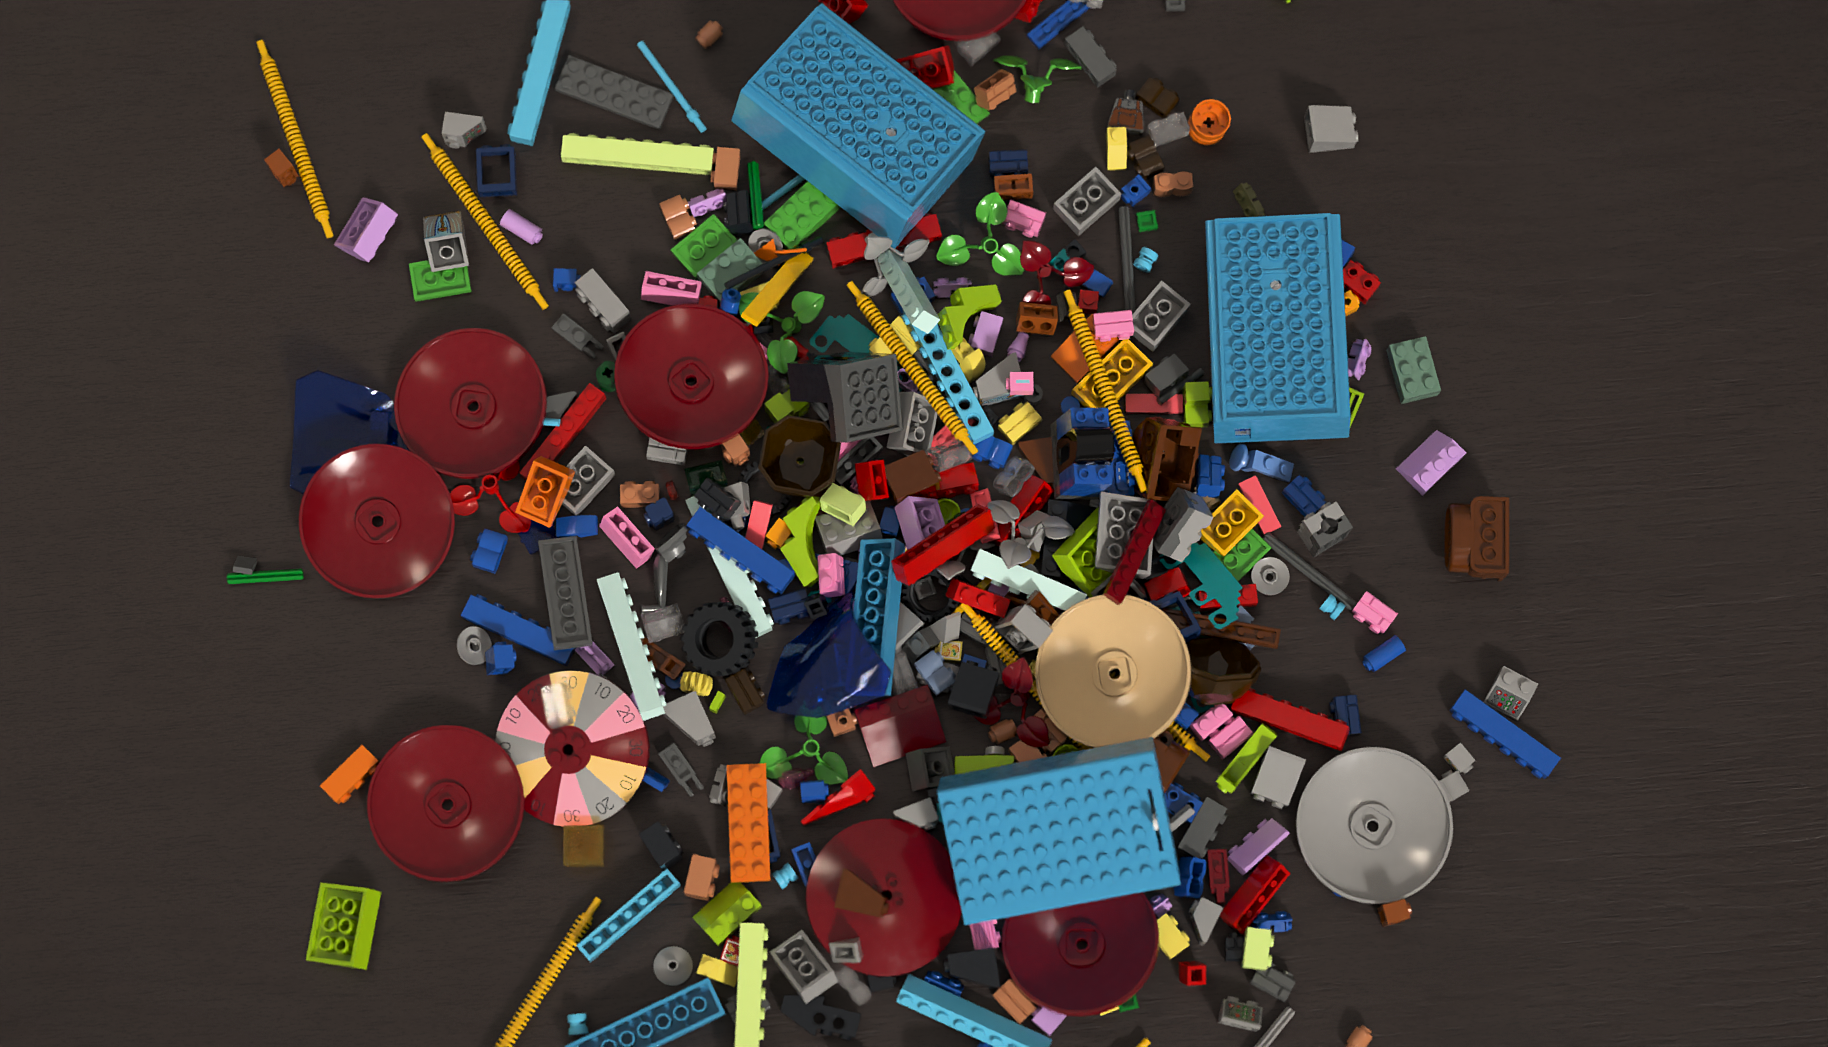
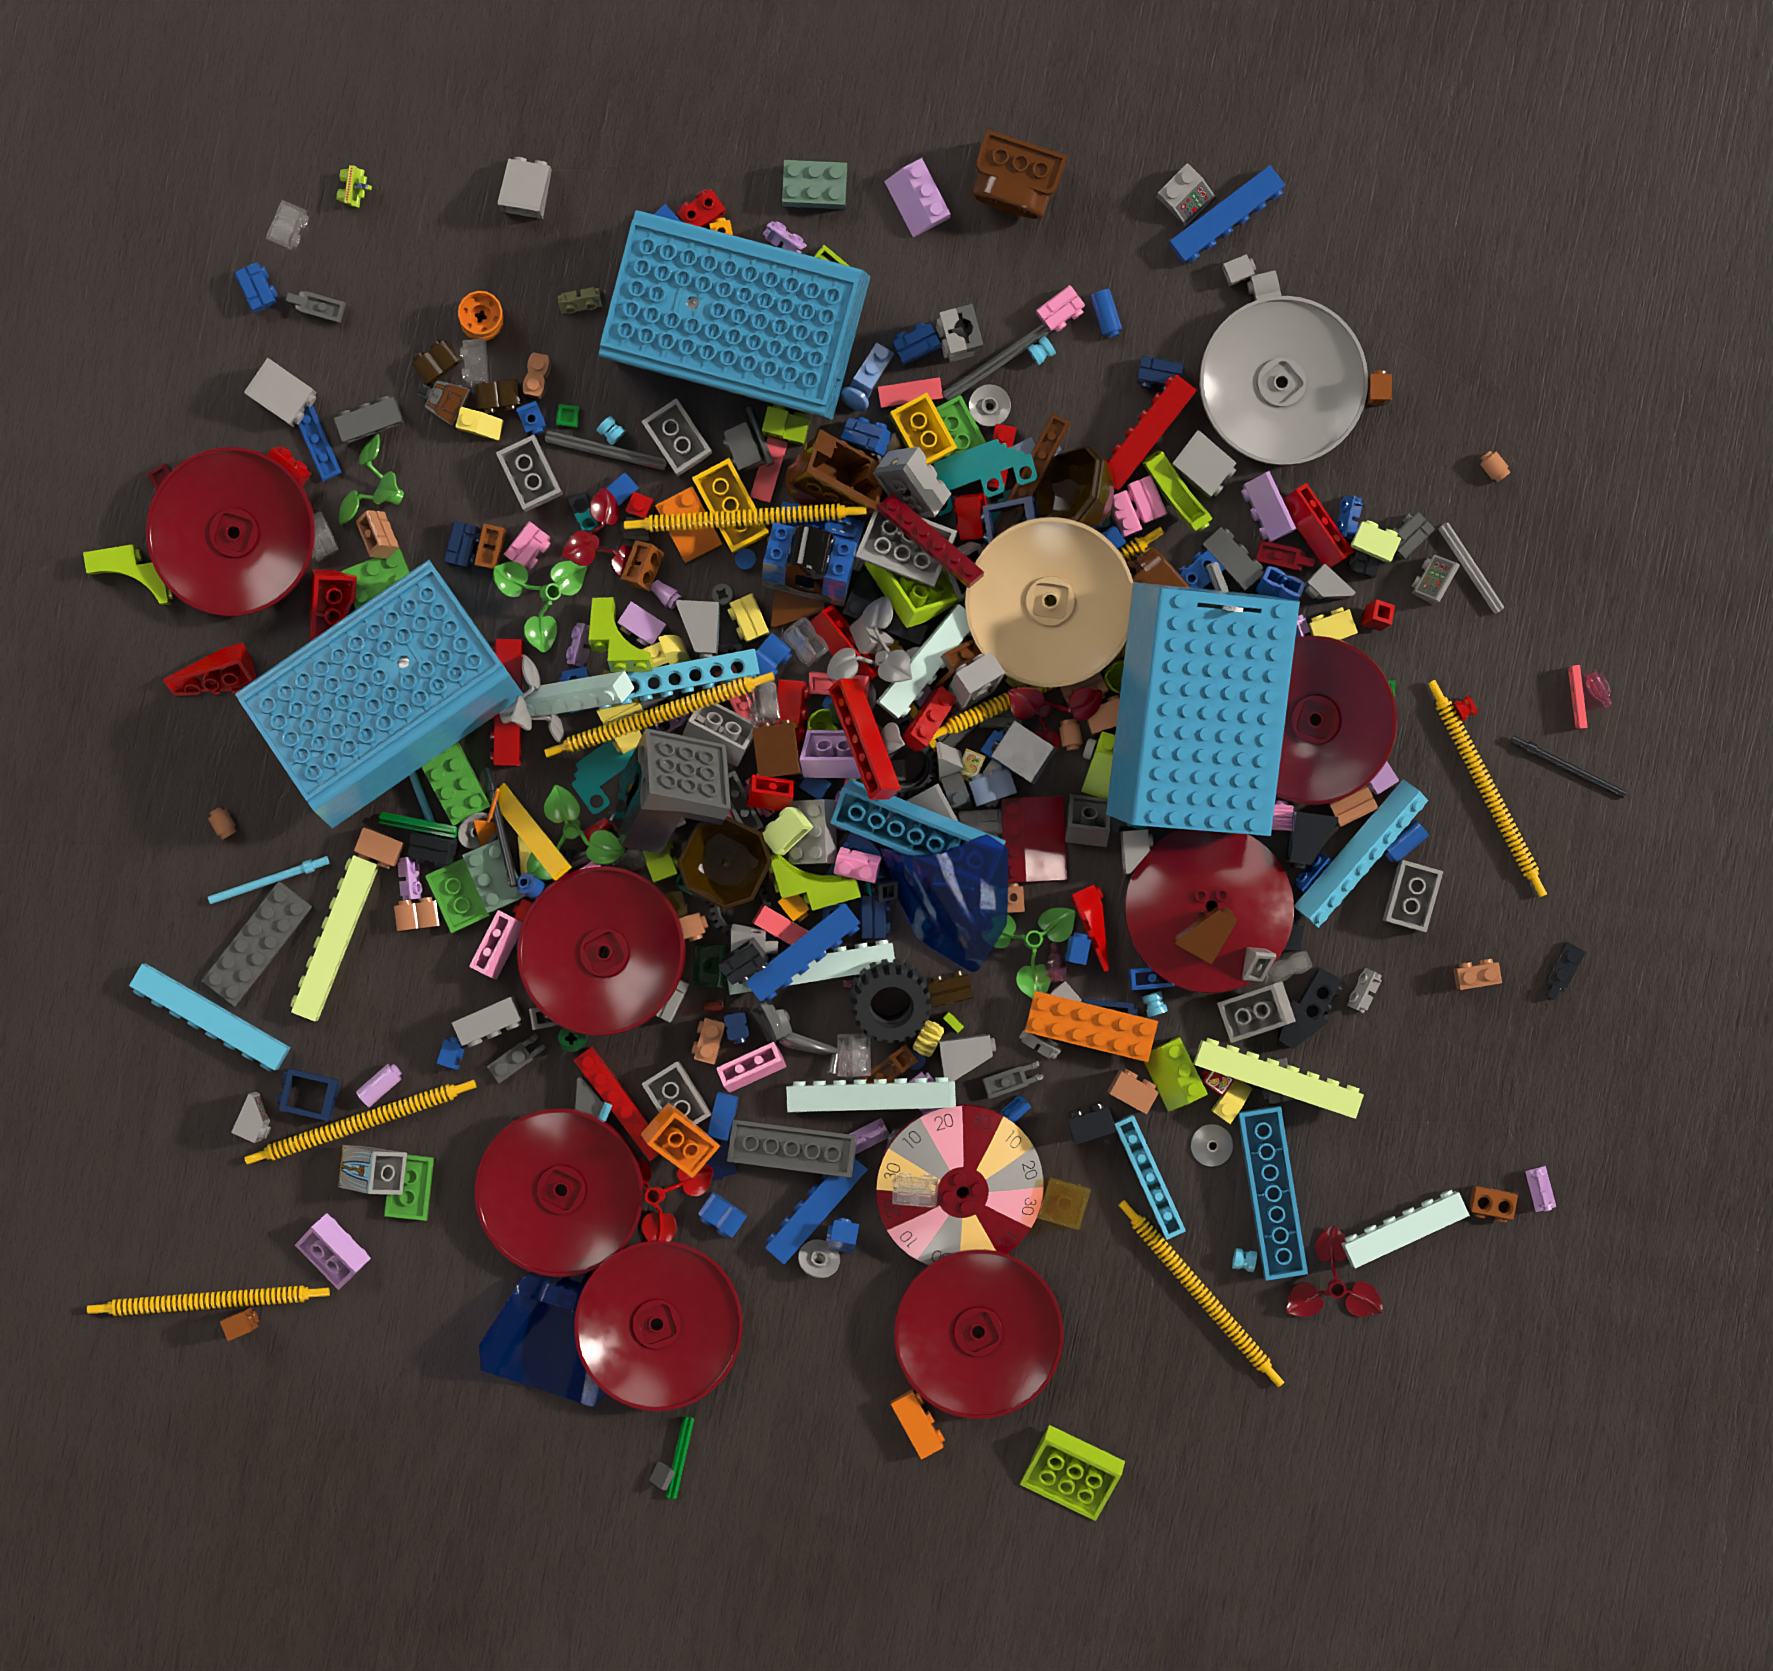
camera: 70 degrees left, 10 degrees up
(1020, 383) = (713, 605): bright pink brick -> none
(1113, 324) = (676, 487): bright pink brick -> none

